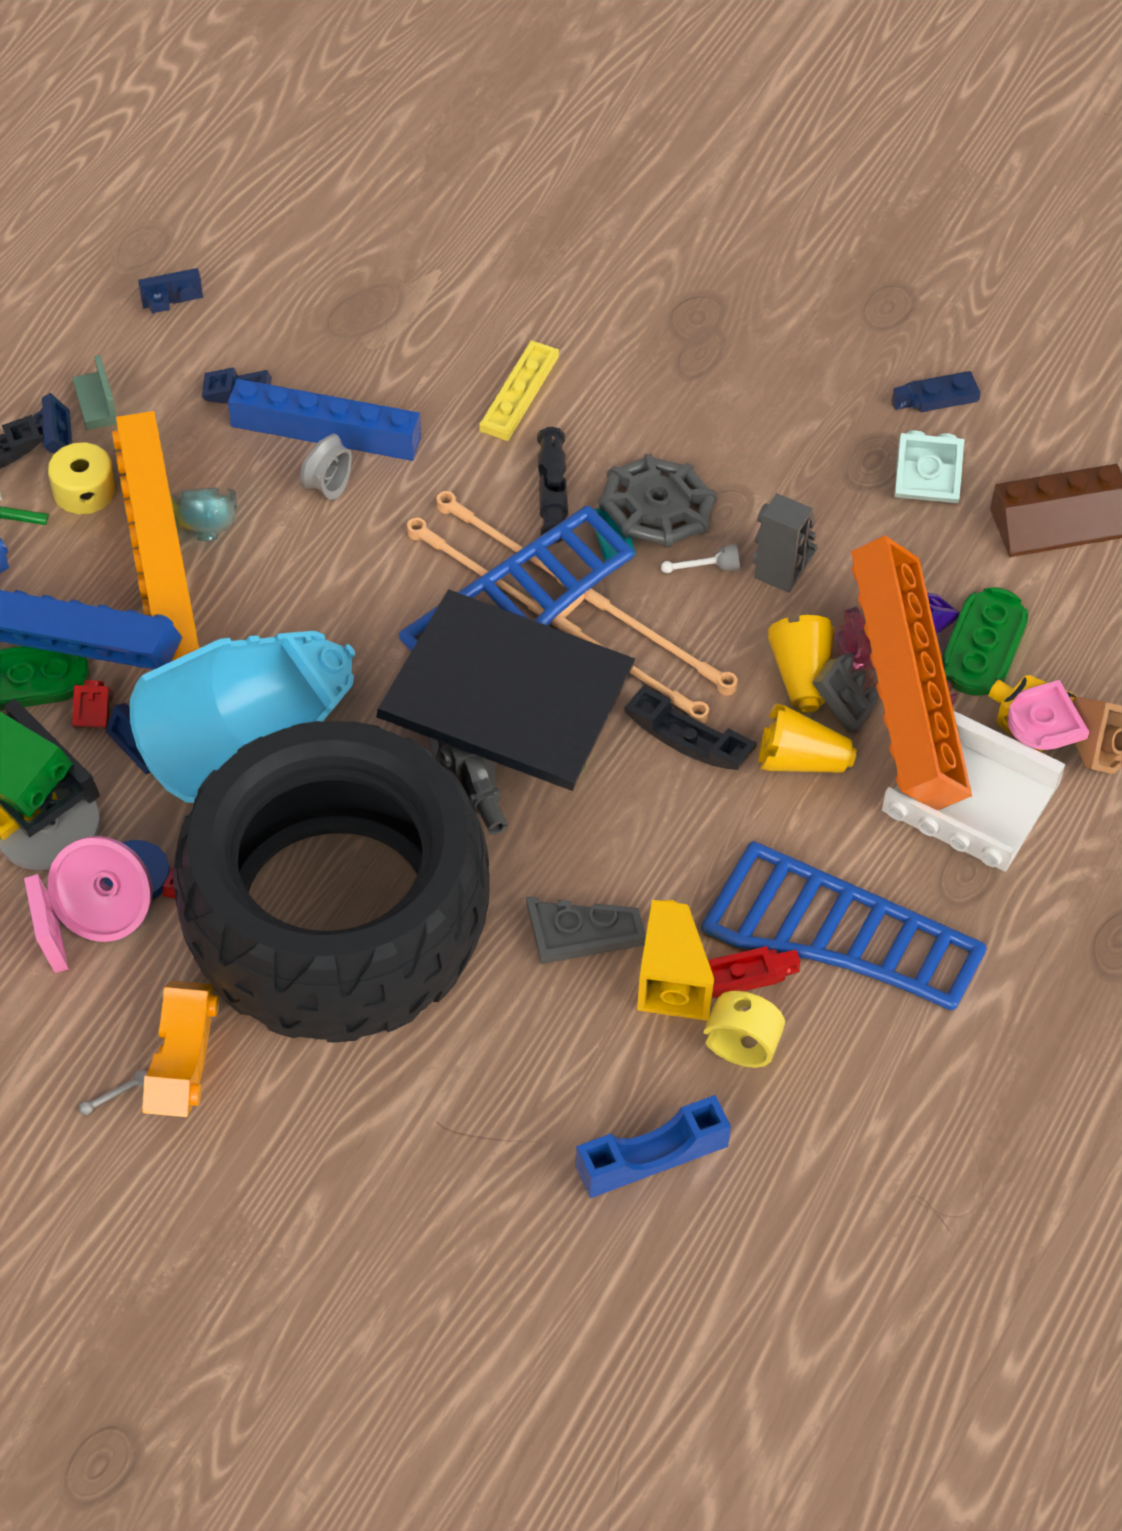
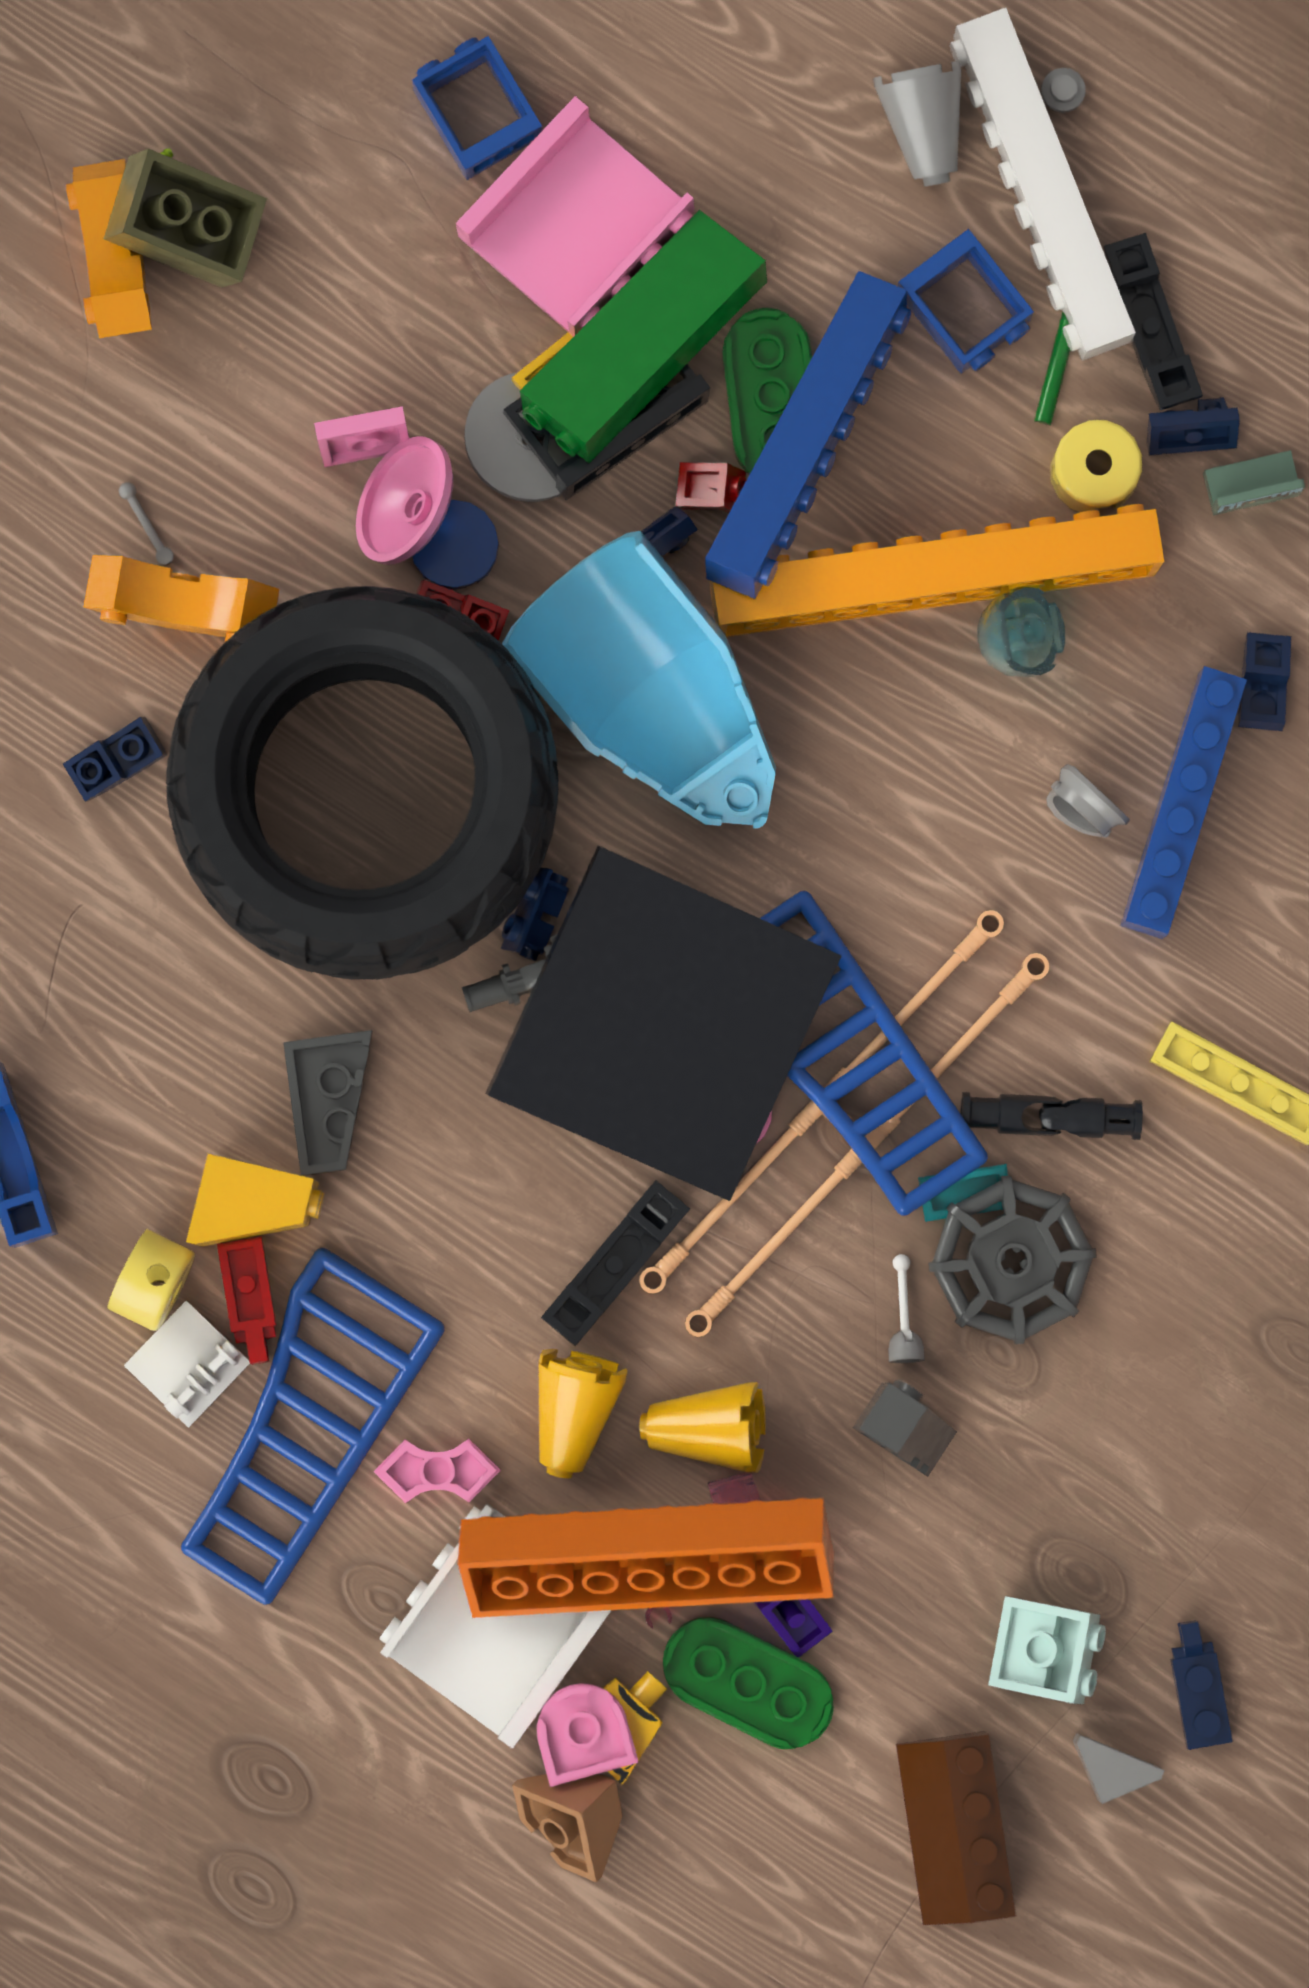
camera: 90 degrees right, 30 degrees up
(313, 1099) = (115, 759): none -> dark blue slope
(810, 1012) = (187, 1364): none -> white hinge
(844, 691) = (654, 1474): dark grey plate -> none
(865, 853) = (415, 1470): none -> bright pink tile
(1006, 430) = (1113, 1771): none -> light grey slope

